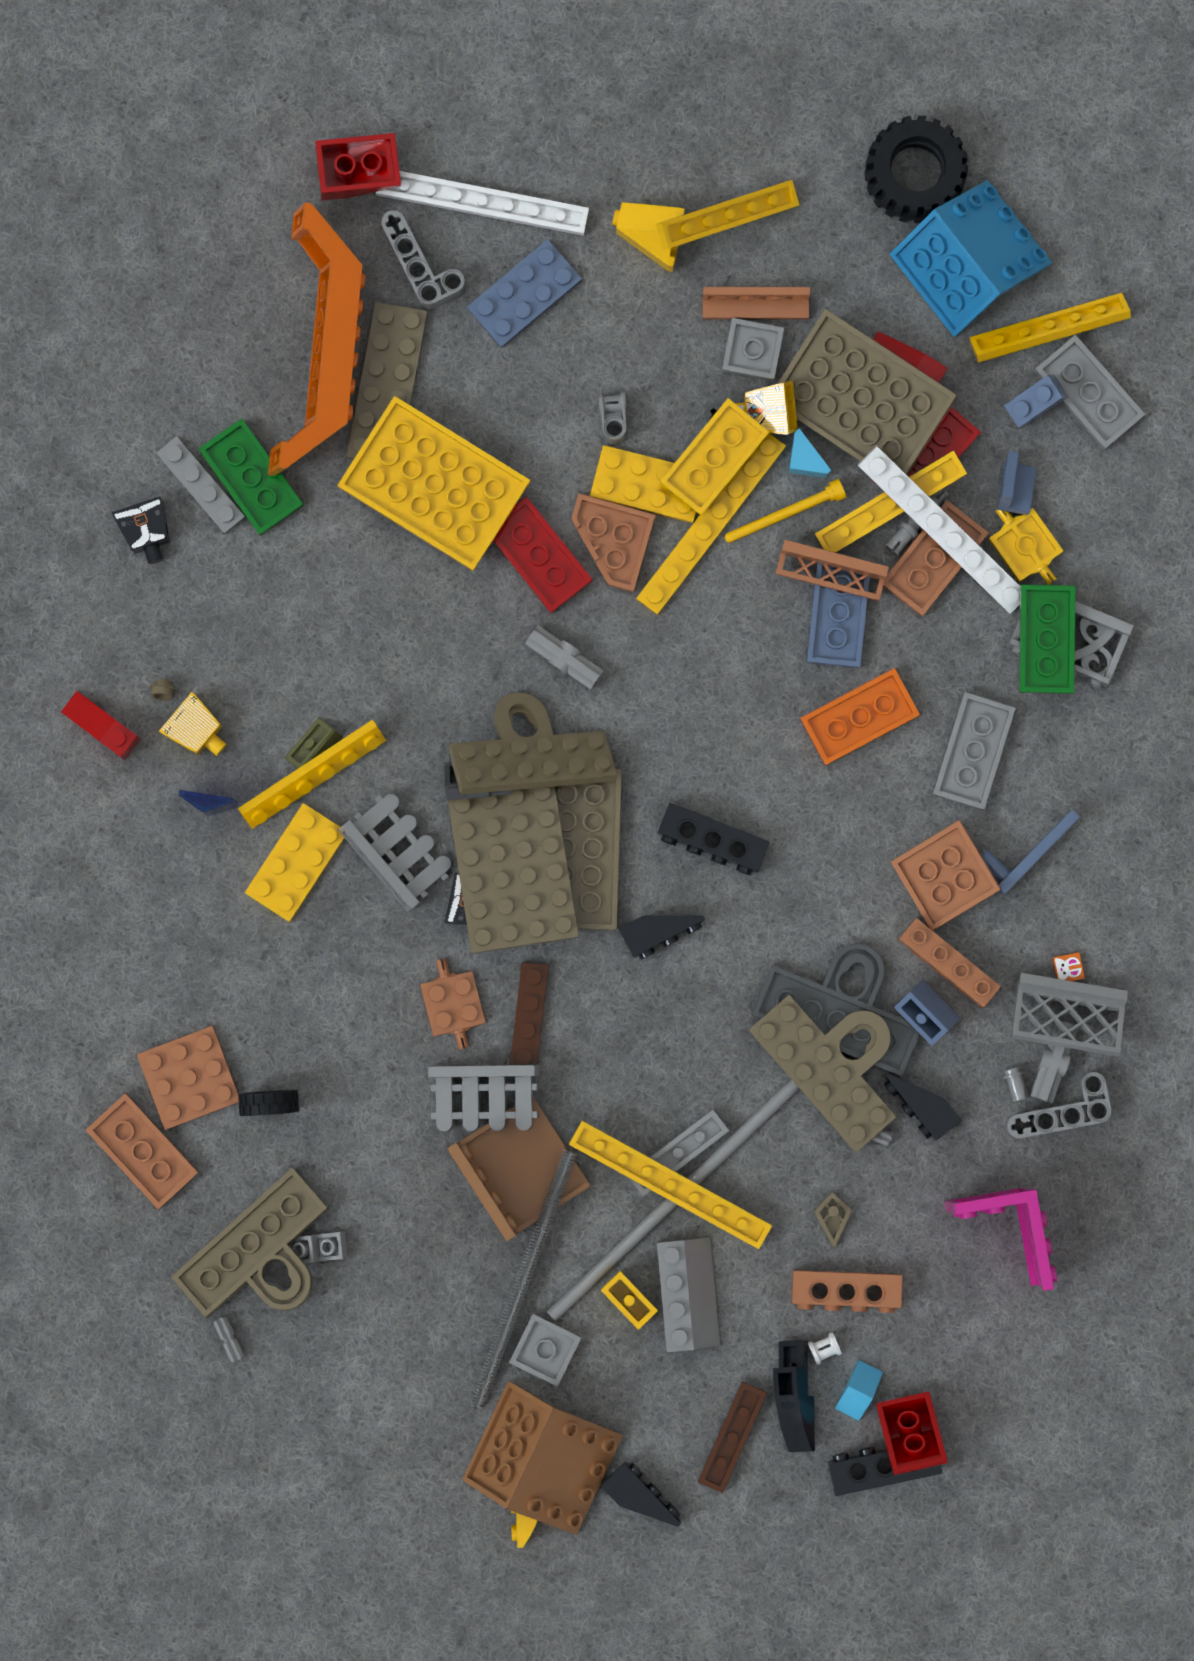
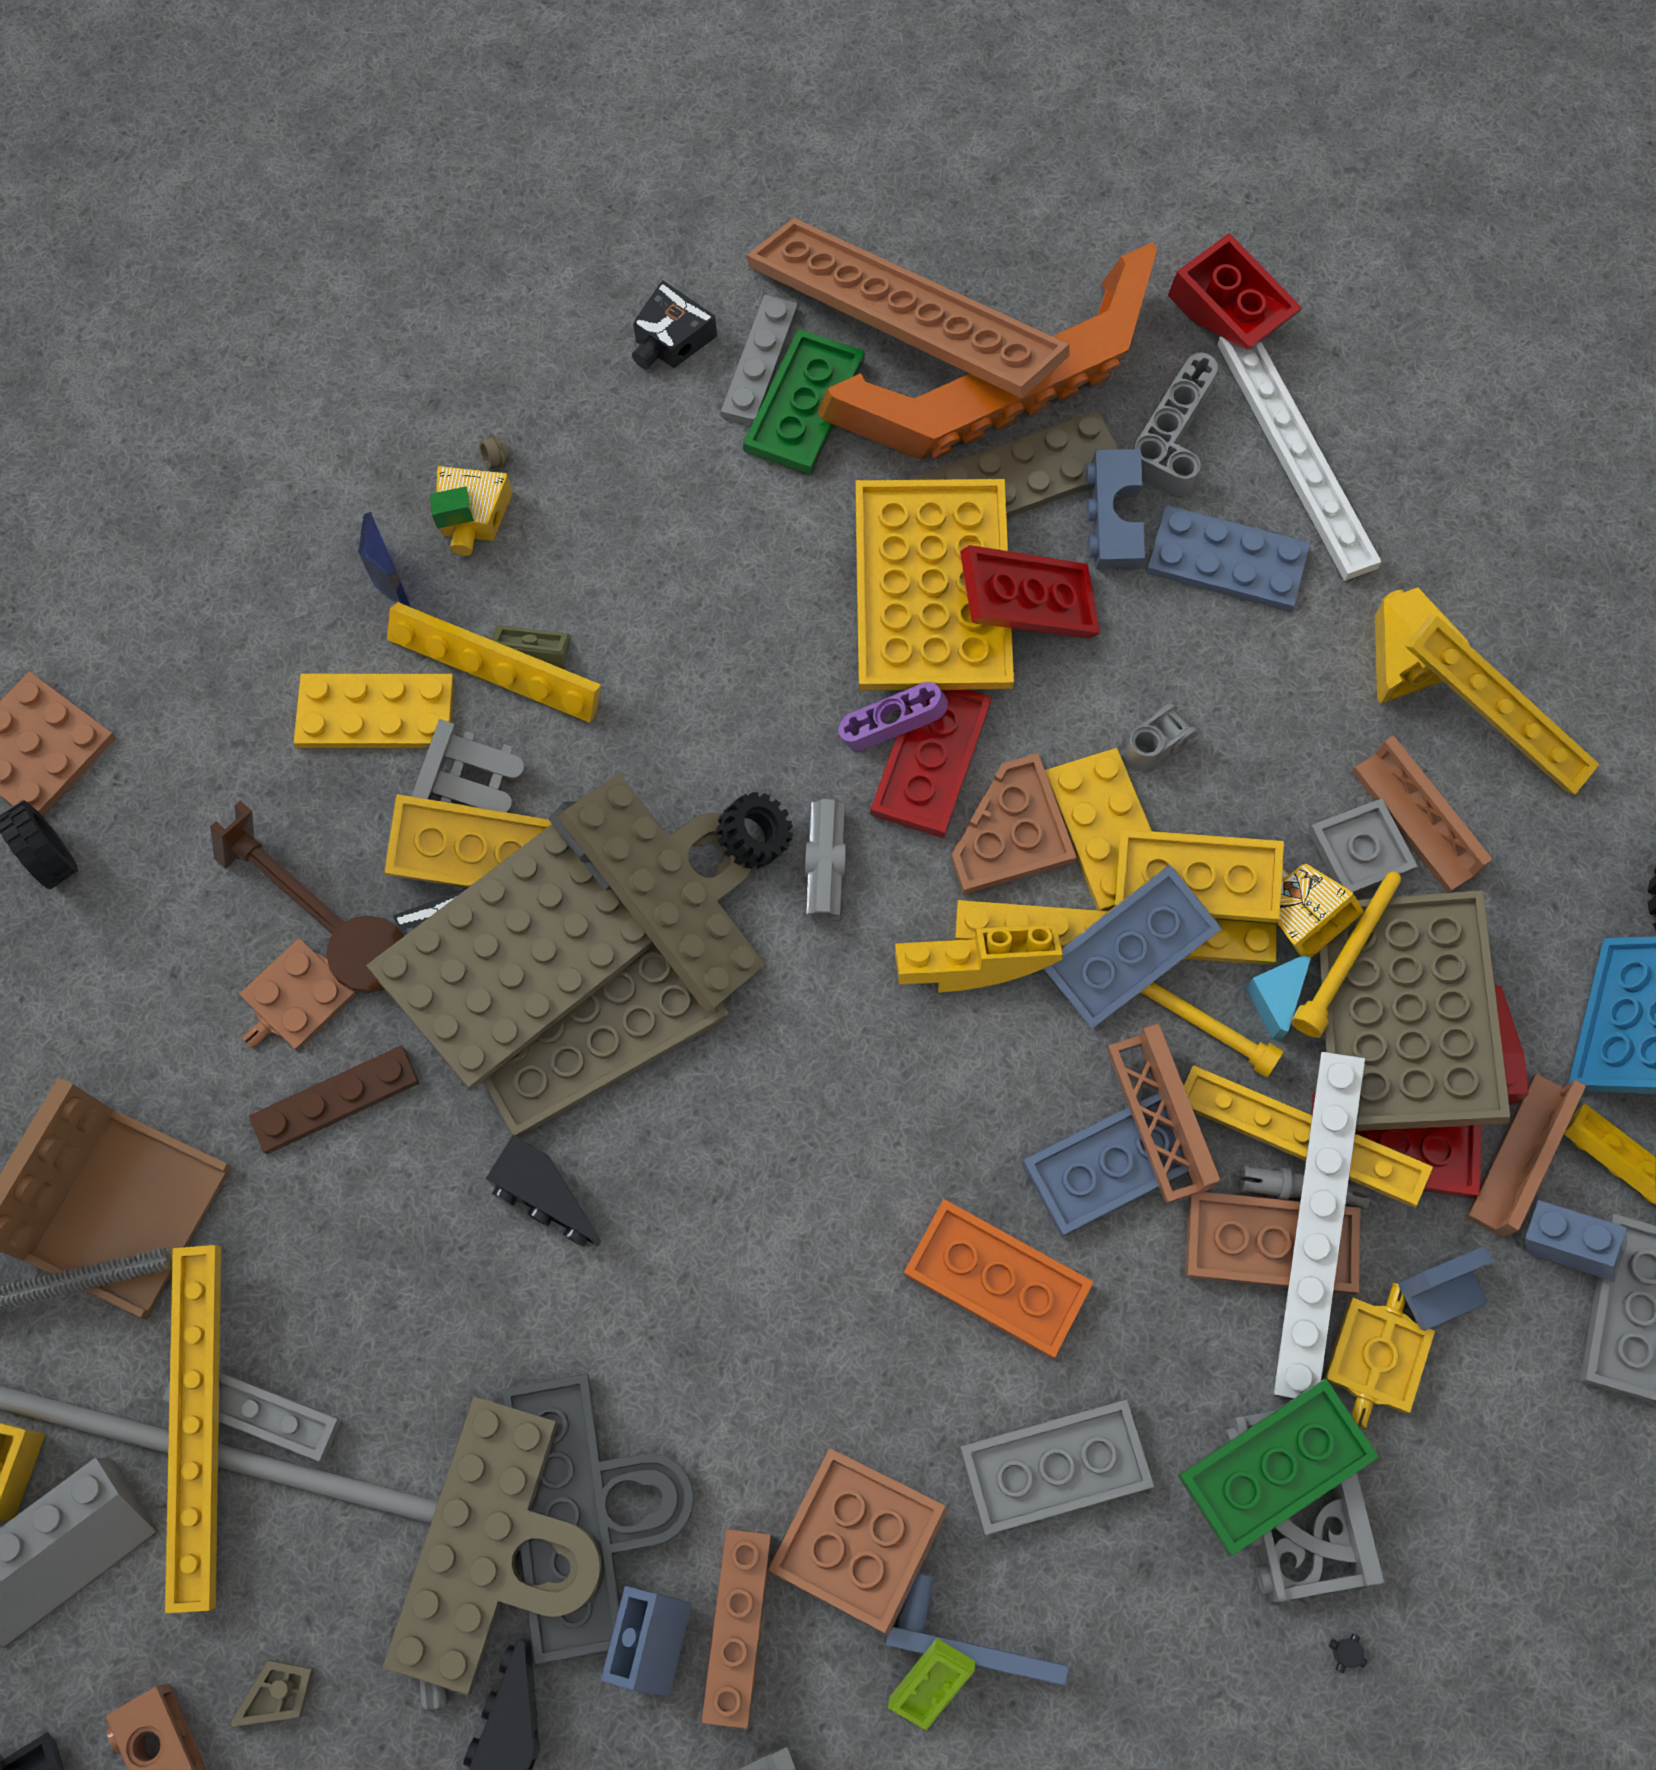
camera: 55 degrees right, 15 degrees down
(100, 725) = (409, 418): red slope -> none
(196, 738) = (451, 507): none -> green slope
(238, 378) = (910, 307): none -> nougat plate
(423, 860) = (453, 841): none -> yellow plate
(433, 331) = (1115, 541): none -> sand blue arch
(447, 953) = (352, 941): none -> reddish brown piece
(471, 1095) = (206, 1113): light grey fence -> none
(480, 432) = (1029, 592): none -> red plate
(501, 542) = (908, 721): none -> medium lavender beam
(519, 699) = (739, 841): none -> black tyre
(677, 816) = (708, 1120): black brick -> none
(681, 610) = (987, 960): none -> yellow slope
(729, 522) = (1132, 946): none -> sand blue plate
(832, 452) = (1312, 1017): none -> yellow piece
(975, 390) = (1528, 1148): none -> nougat fence
(1037, 883) = (931, 1684): none -> lime plate
(1154, 665) = (1348, 1653): none -> black piece

